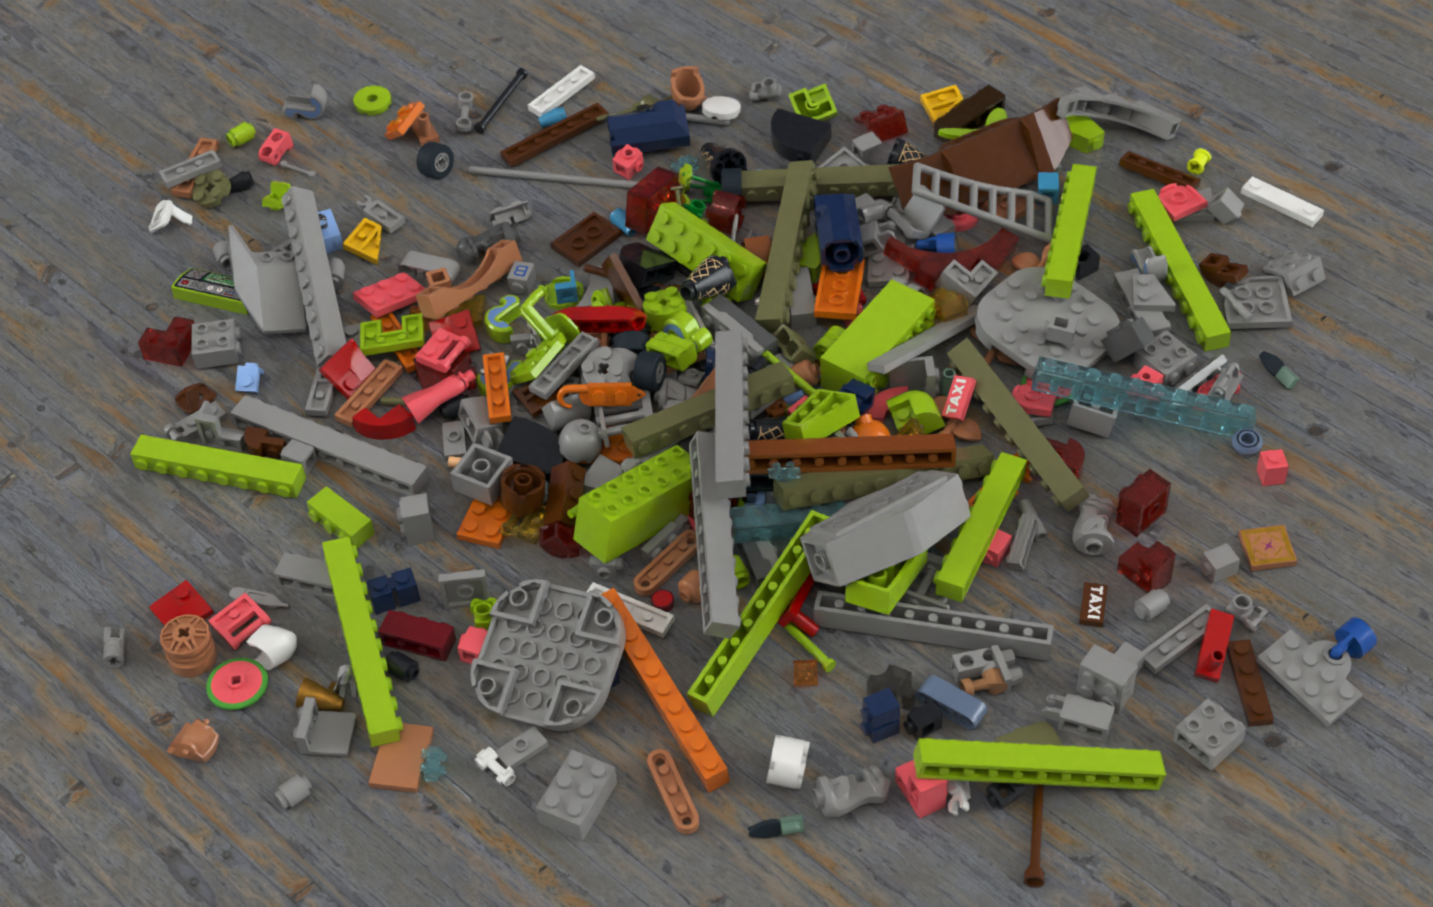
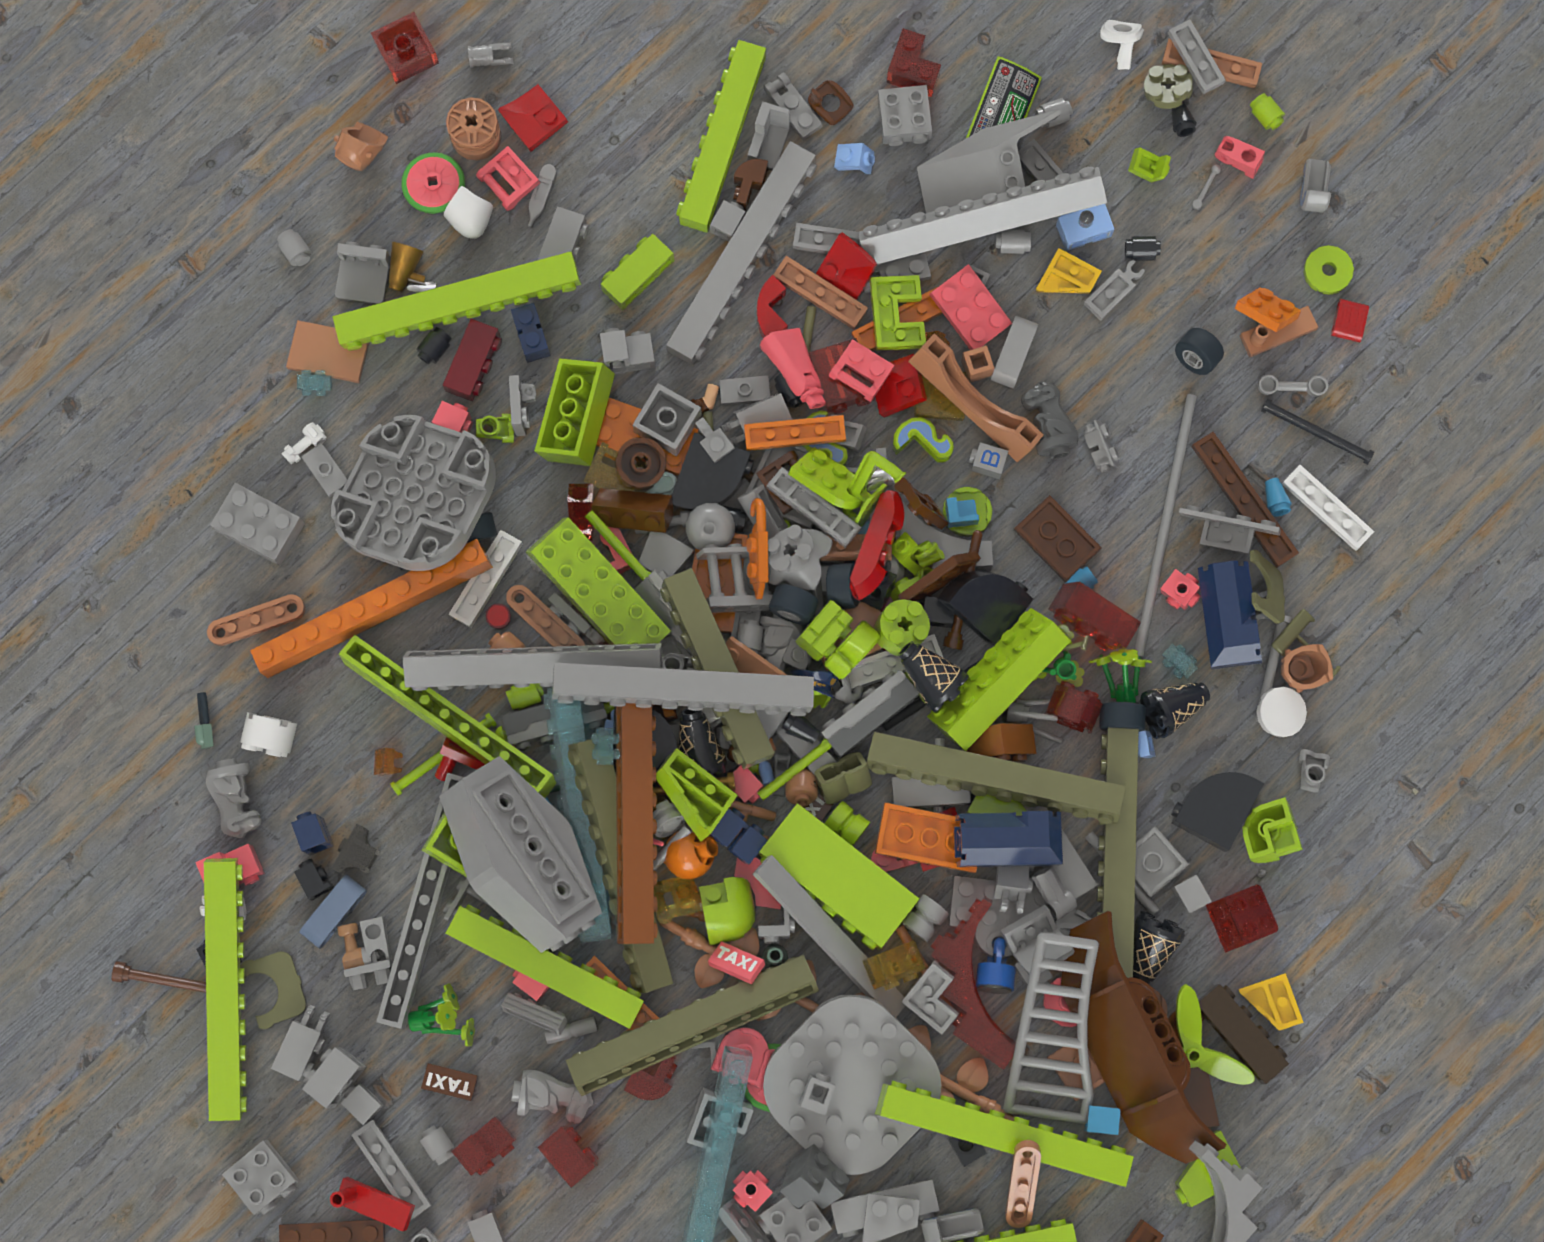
camera: 90 degrees right, 30 degrees up
(97, 709) = (405, 48): none -> clear red brick
(346, 198) = (1142, 248): none -> black brick
(414, 87) = (1350, 320): none -> red piece
(472, 545) = (574, 412): none -> lime brick
(503, 436) = (715, 442): none -> light grey plate
(563, 299) = (921, 504): none -> reddish brown plate
(581, 140) = (1228, 532): none -> light grey bracket
(1045, 589) = (423, 1019): none -> plant
(1106, 215) = (1023, 1183): none -> nougat plate

